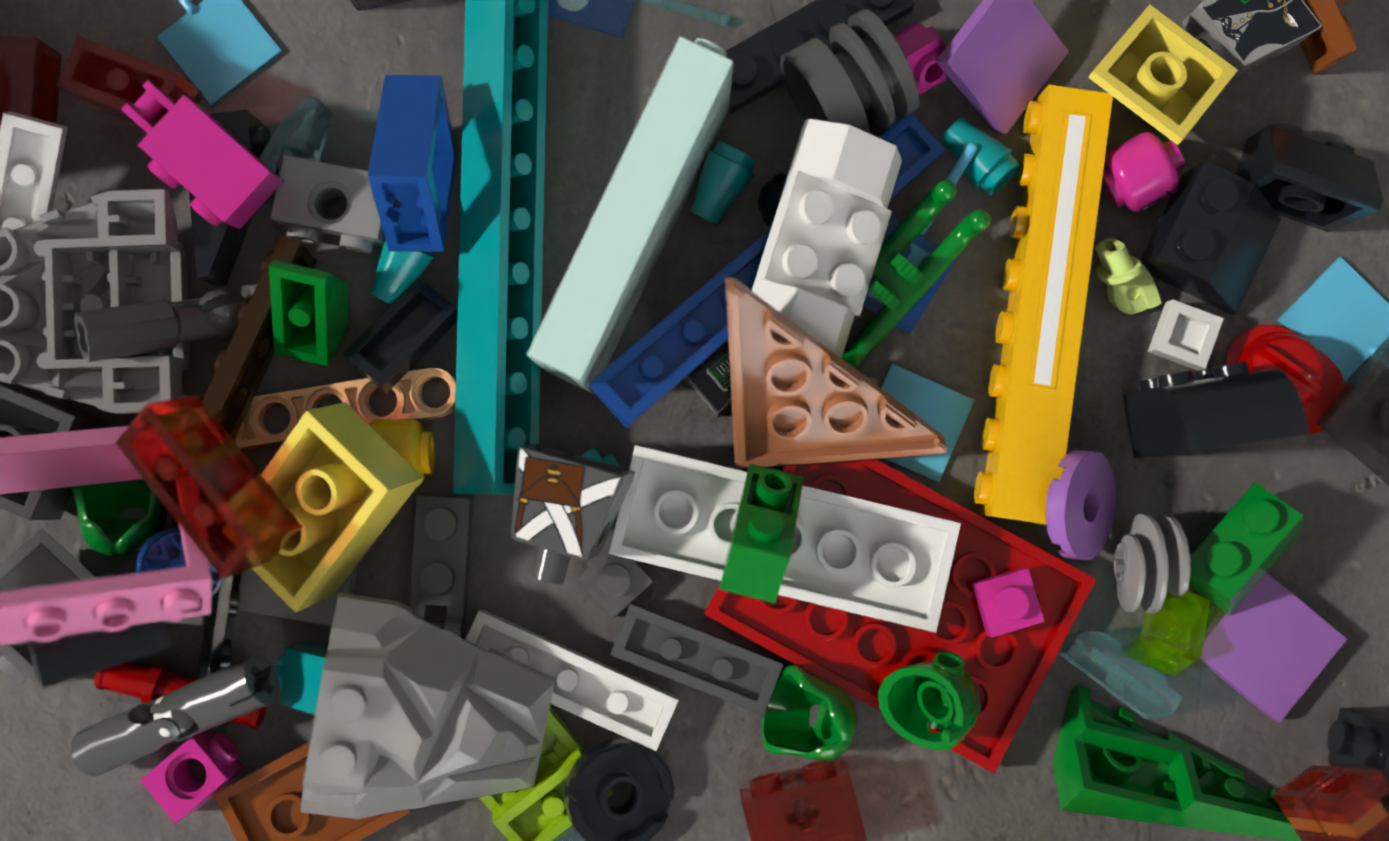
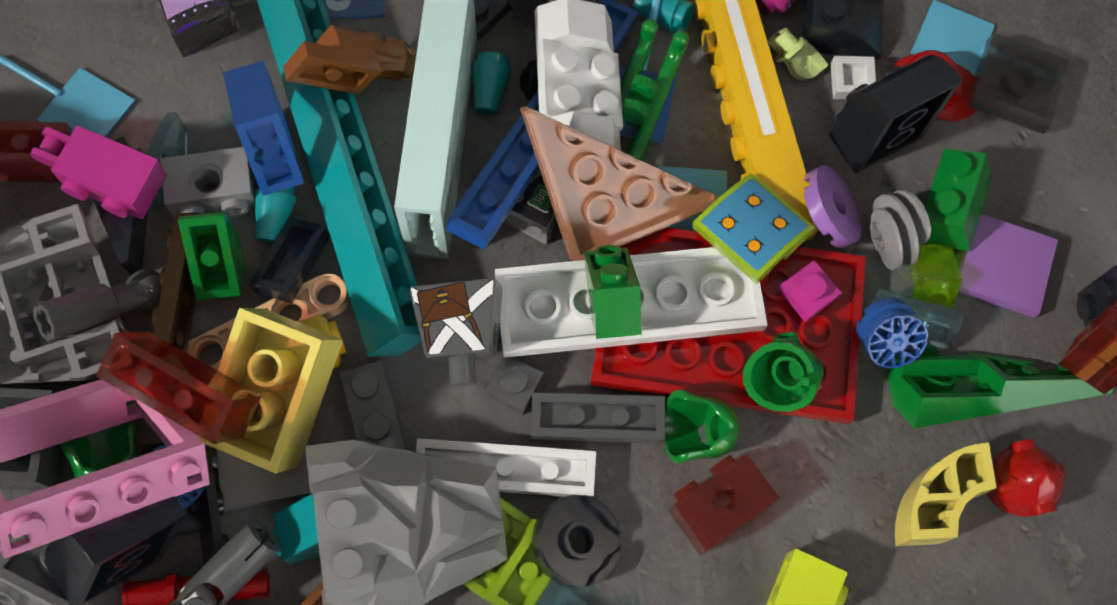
camera: 25 degrees left, 15 degrees down
(553, 104) = (349, 59): none -> dark orange plate
(970, 505) = (753, 227): none -> dark azure slope
(1083, 691) = (880, 339): none -> blue wheel

